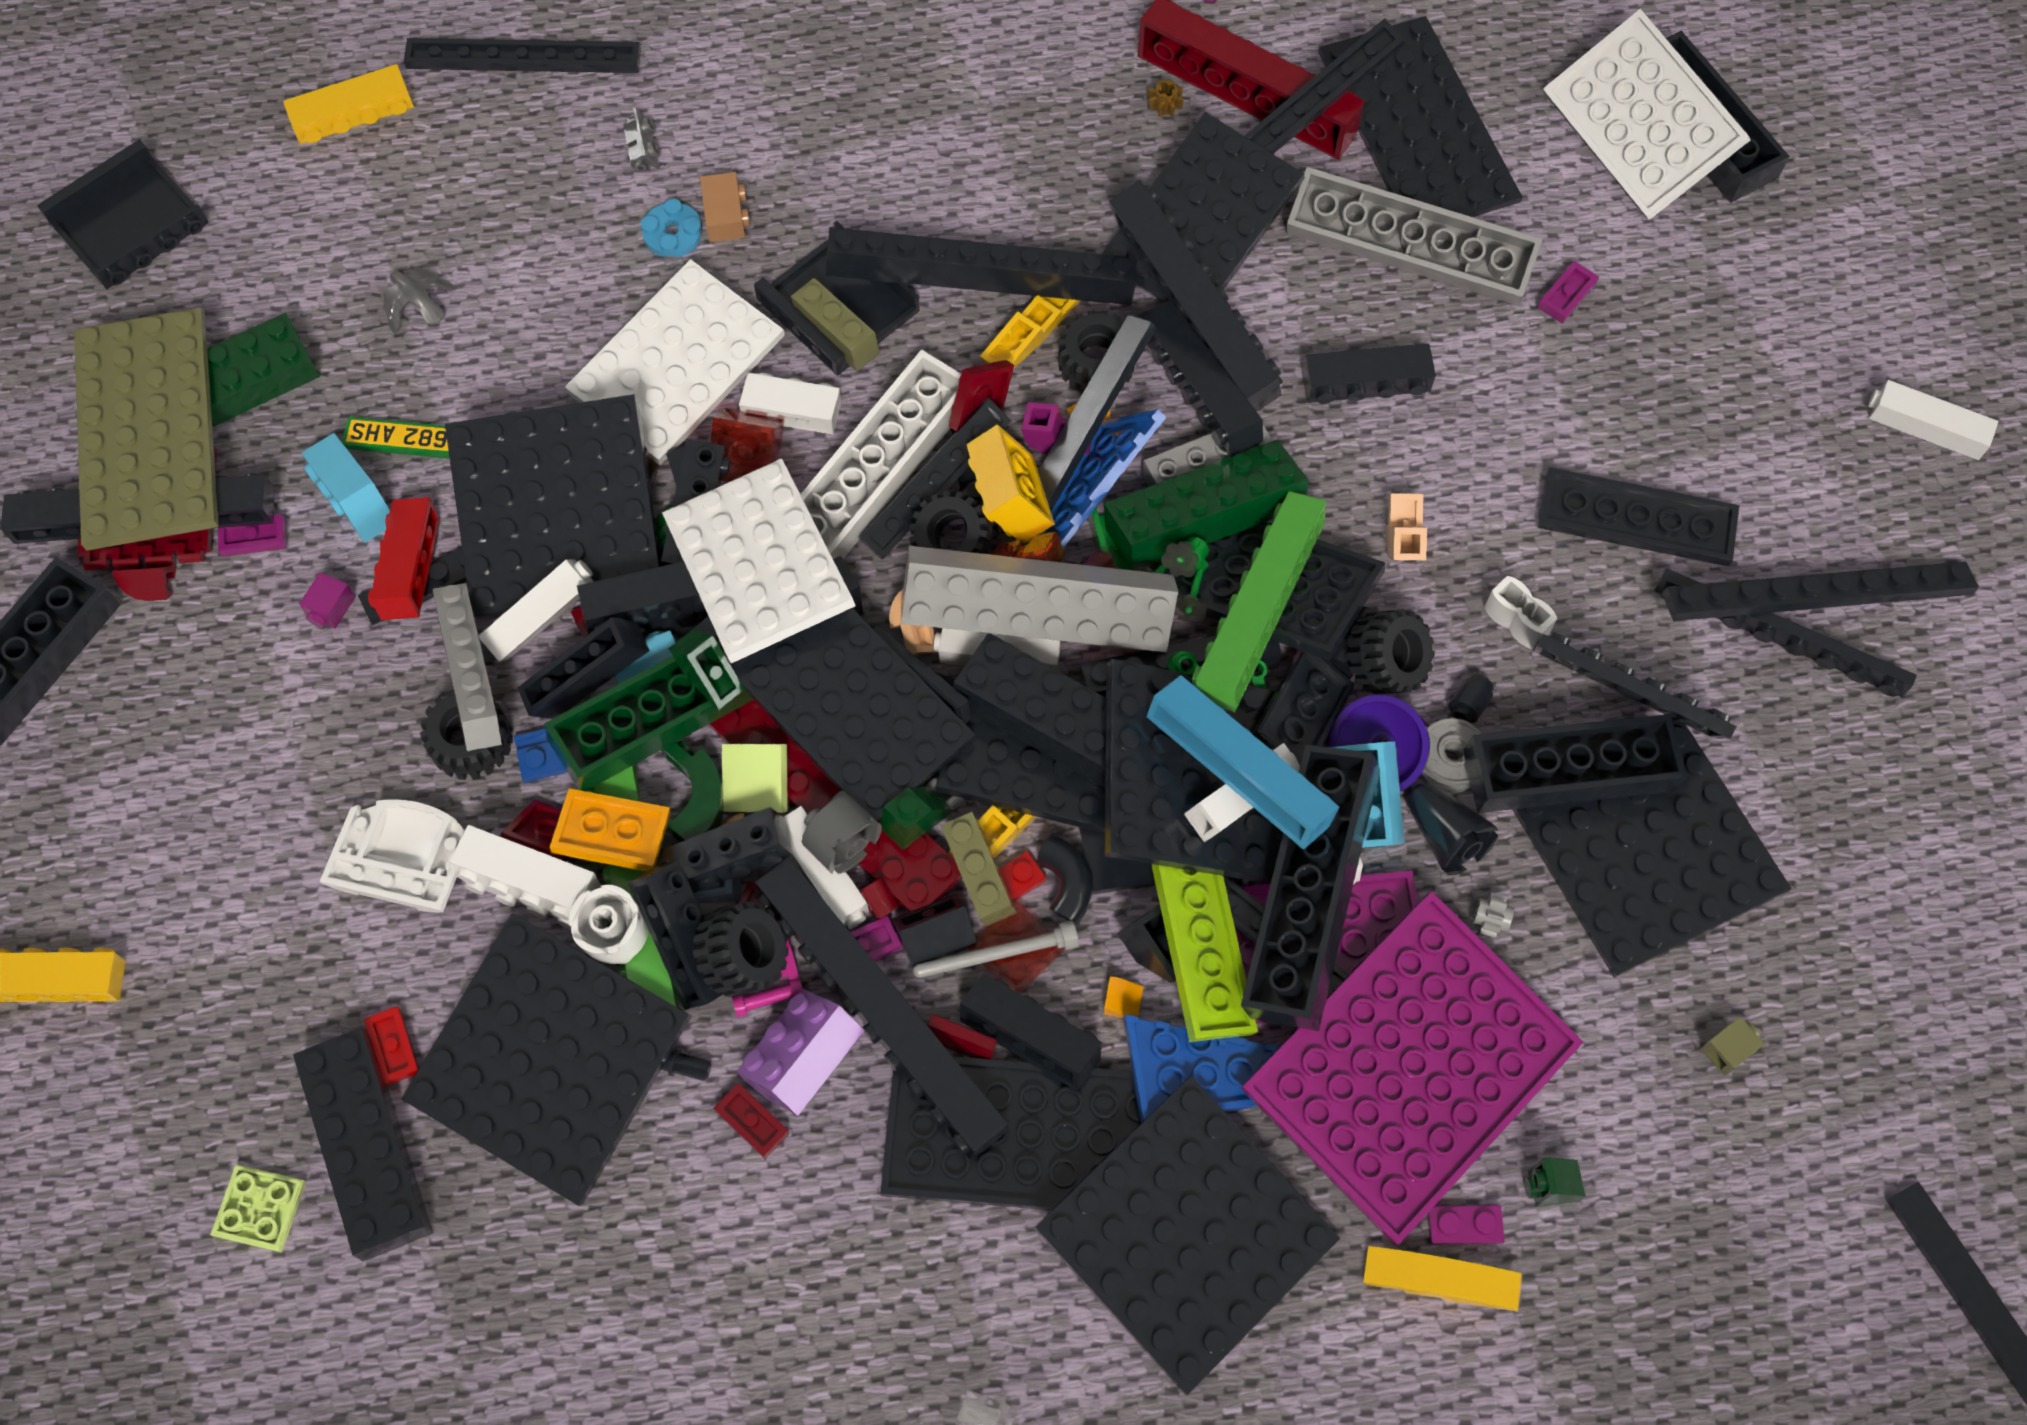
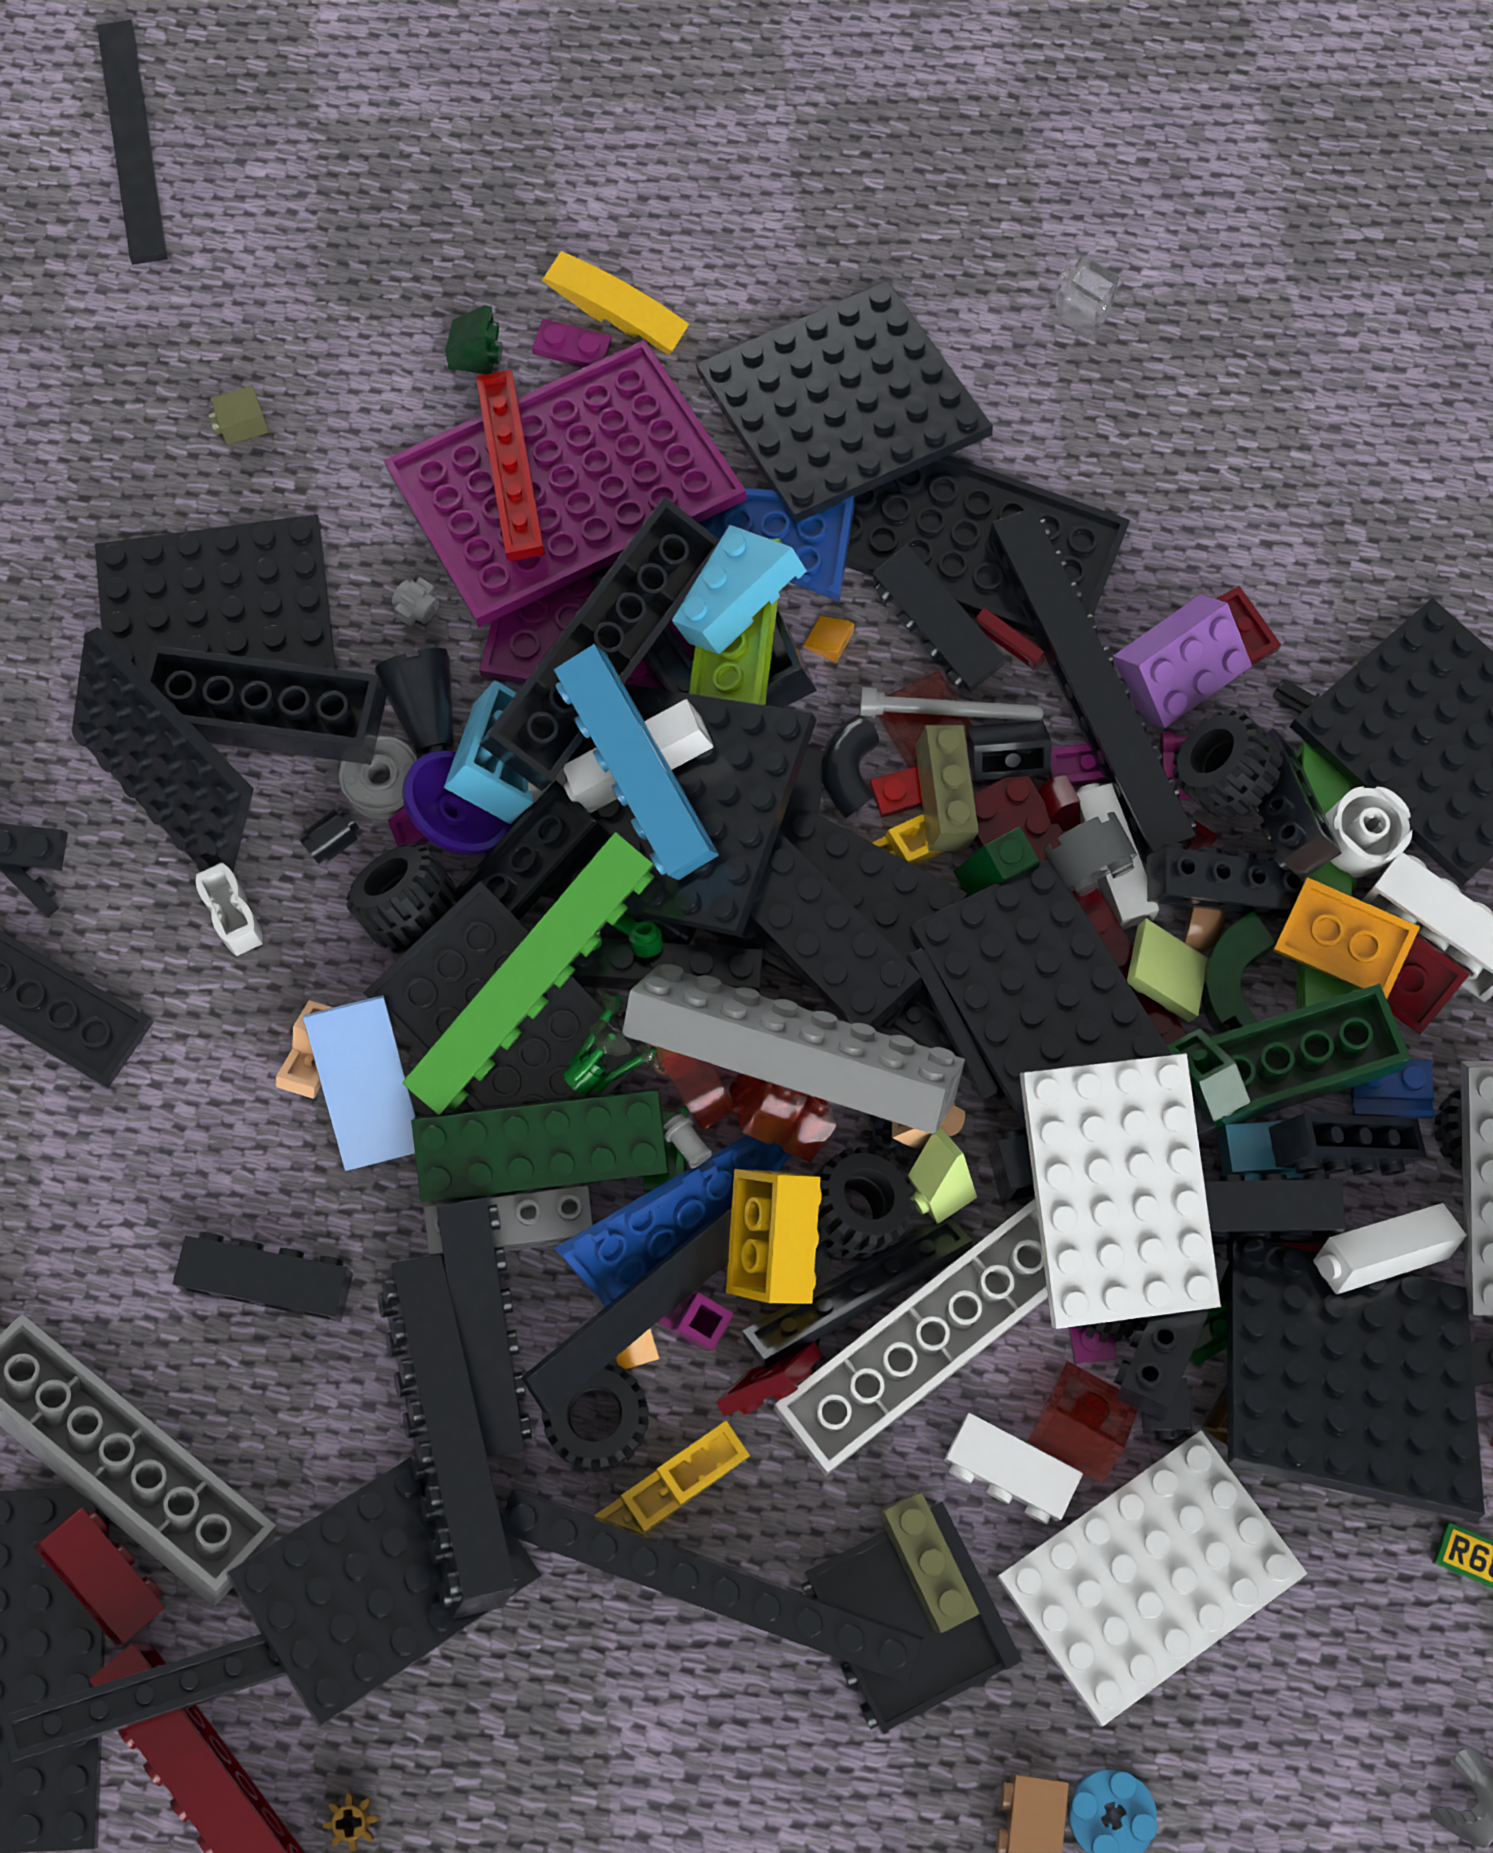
camera: 165 degrees left, 5 degrees up
(890, 569) = (941, 1178): none -> yellowish green slope
(1097, 528) = (687, 1141): none -> light grey pin
(1218, 971) = (733, 587): none -> medium azure wedge
(1362, 513) = (362, 1081): none -> light blue tile
(1390, 169) = (100, 1575): none -> dark red brick
(1467, 1054) = (510, 466): none -> red plate

